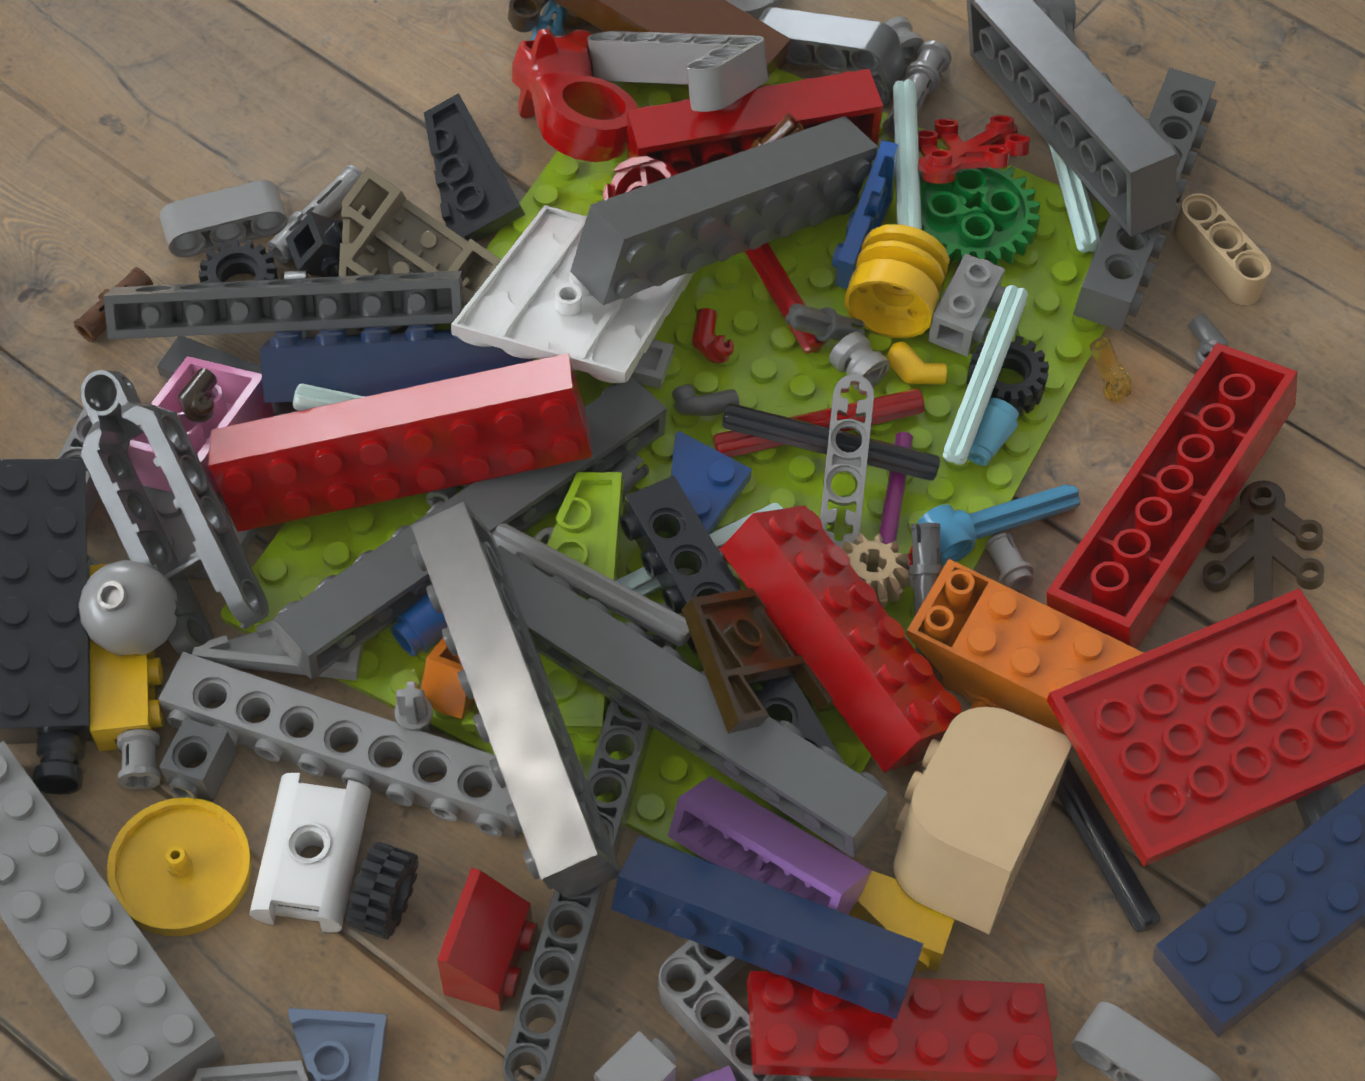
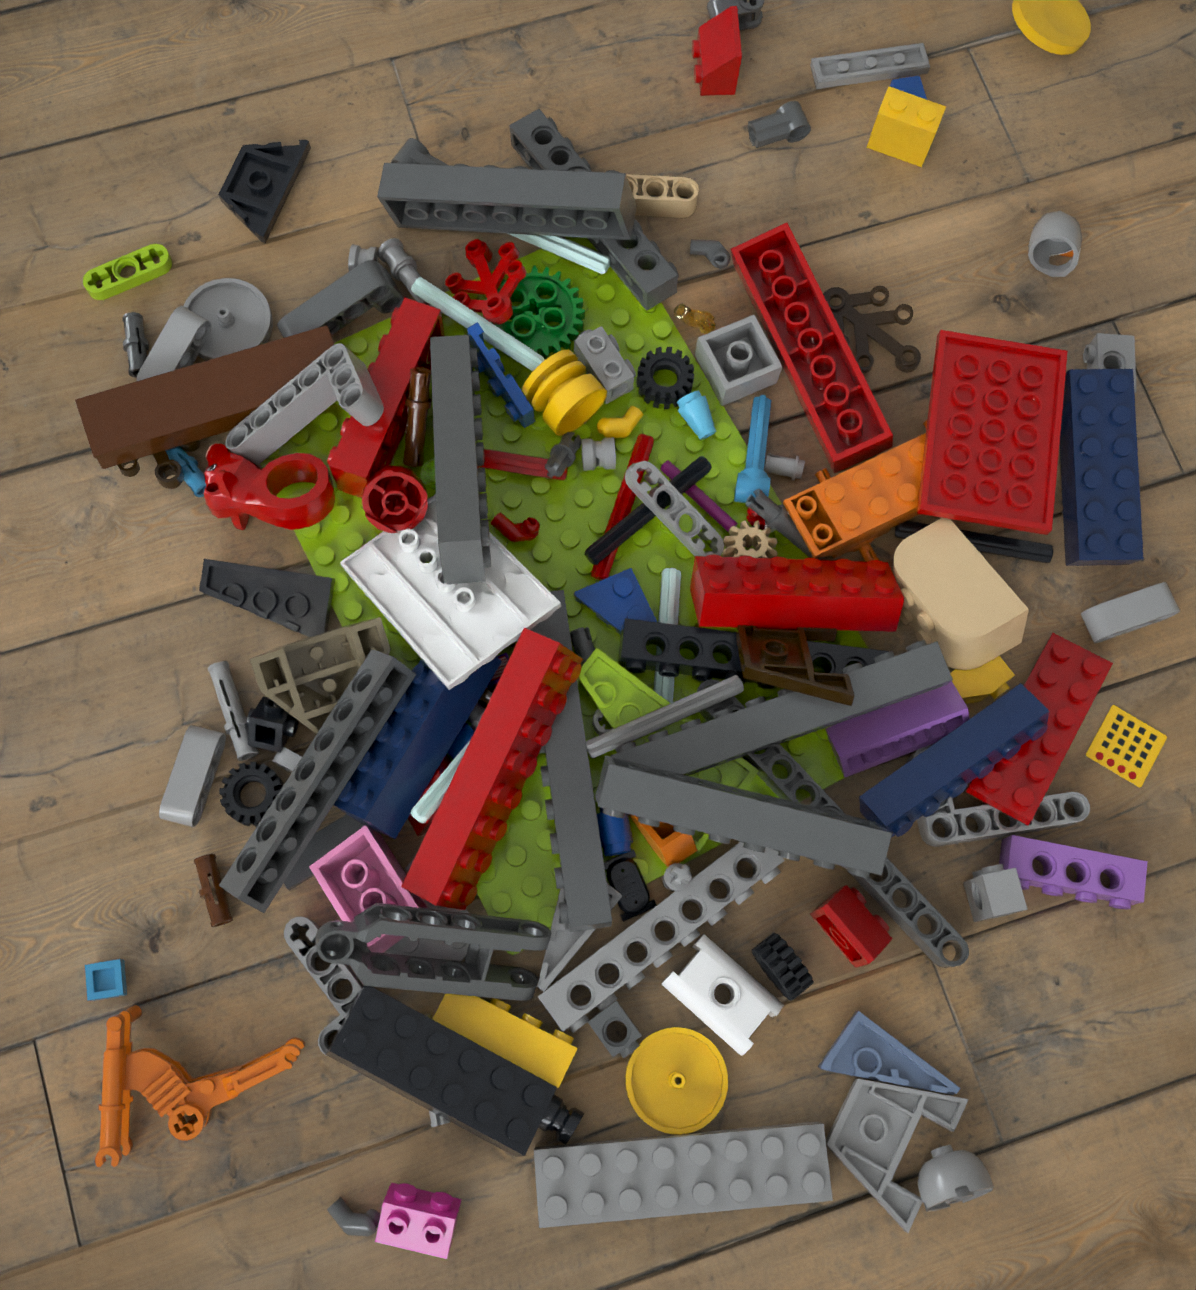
camera: 60 degrees left, 15 degrees up
(128, 608) = (492, 1015): light grey cylinder -> none
(138, 759) = (589, 1066): light grey bush -> none
(193, 396) = (361, 884): dark brown arm -> none
(378, 679) = (629, 885): none -> black piece
(705, 405) = (565, 565): dark grey arm -> none
(985, 375) = (667, 390): light aqua axle -> none
(1092, 434) = (737, 360): none -> light grey brick

